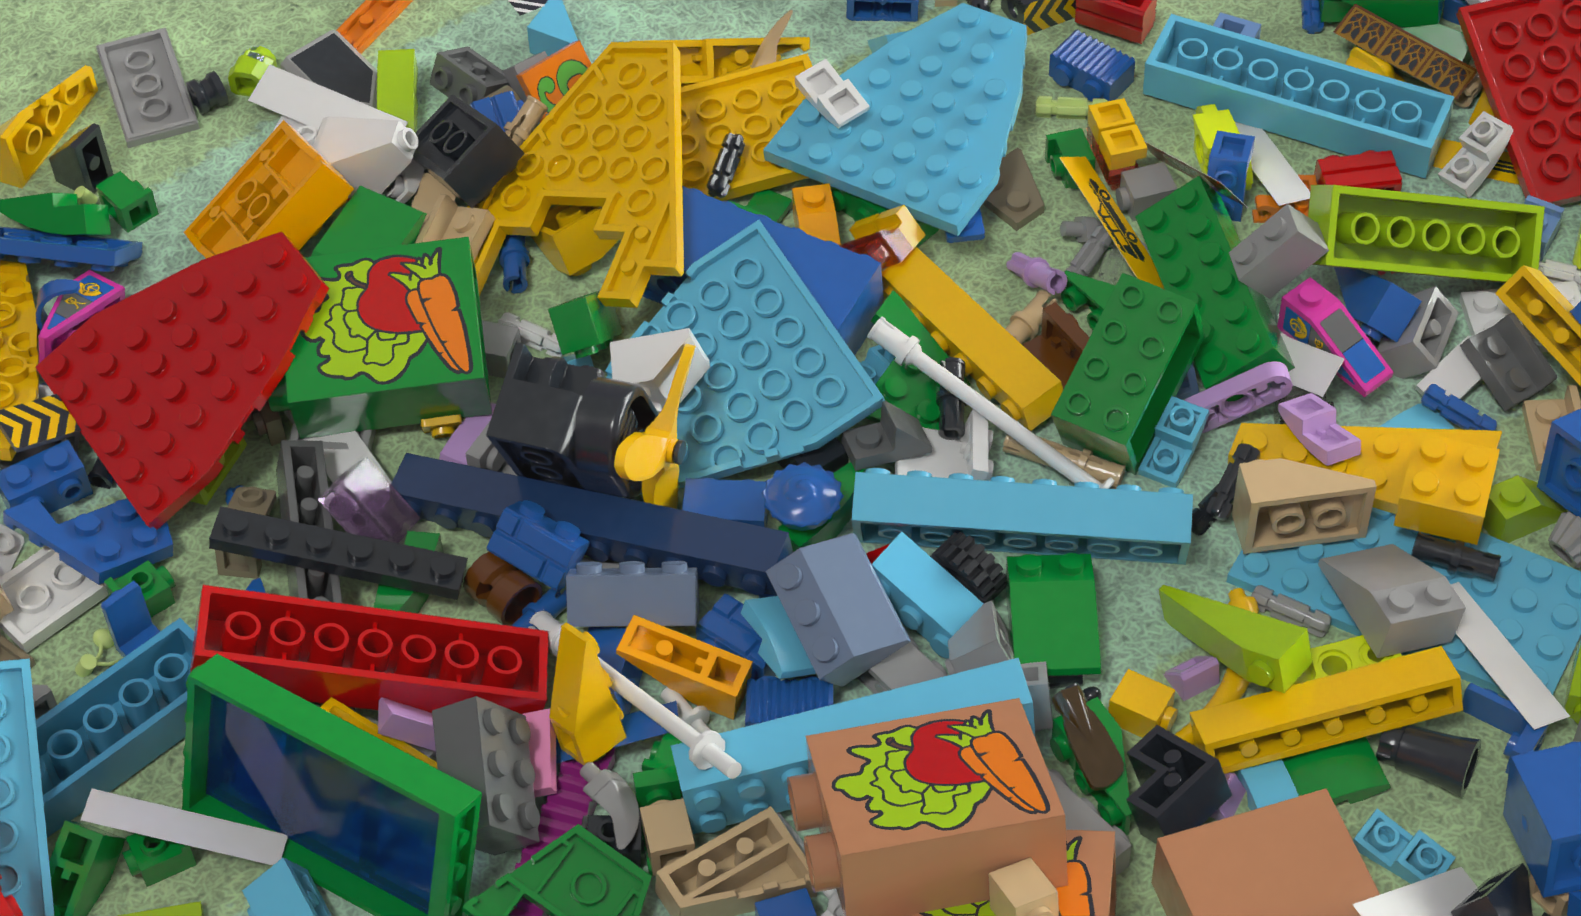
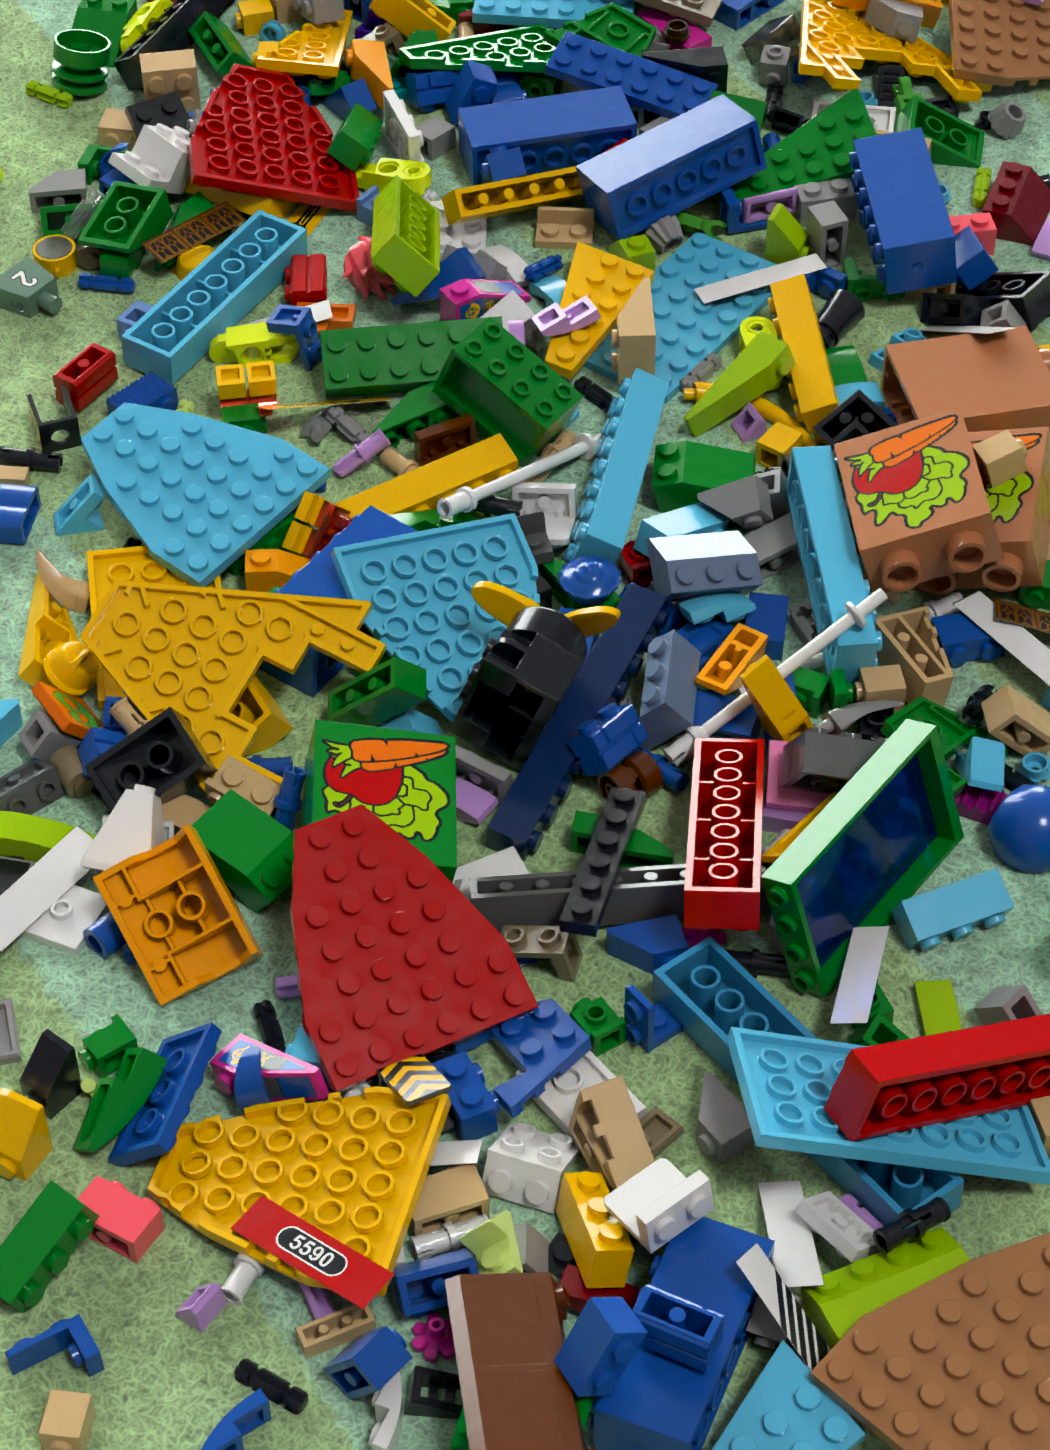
camera: 85 degrees left, 5 degrees down
(87, 663) = (667, 1068): yellowish green piece -> none
(368, 504) = (546, 850): clear purple brick -> none
(406, 723) = (782, 812): lavender slope -> none
(654, 360) = (466, 632): white slope -> none
(830, 94) = (172, 521): white slope -> none
(971, 566) = (656, 501): black tyre -> none
(1144, 188) = (291, 386): light grey brick -> none
(1192, 172) = (310, 338): sticker -> none
(1221, 505) = (596, 371): black axle -> none
(1278, 251) = (420, 291): light grey brick -> none
(1394, 599) = (715, 306): light grey slope -> none
(1446, 487) = (637, 255): yellow brick -> none
(1456, 556) = (679, 281): black pin -> none
(1481, 150) = (304, 212): white slope -> none
(1509, 362) = (507, 232): dark grey bracket -> none

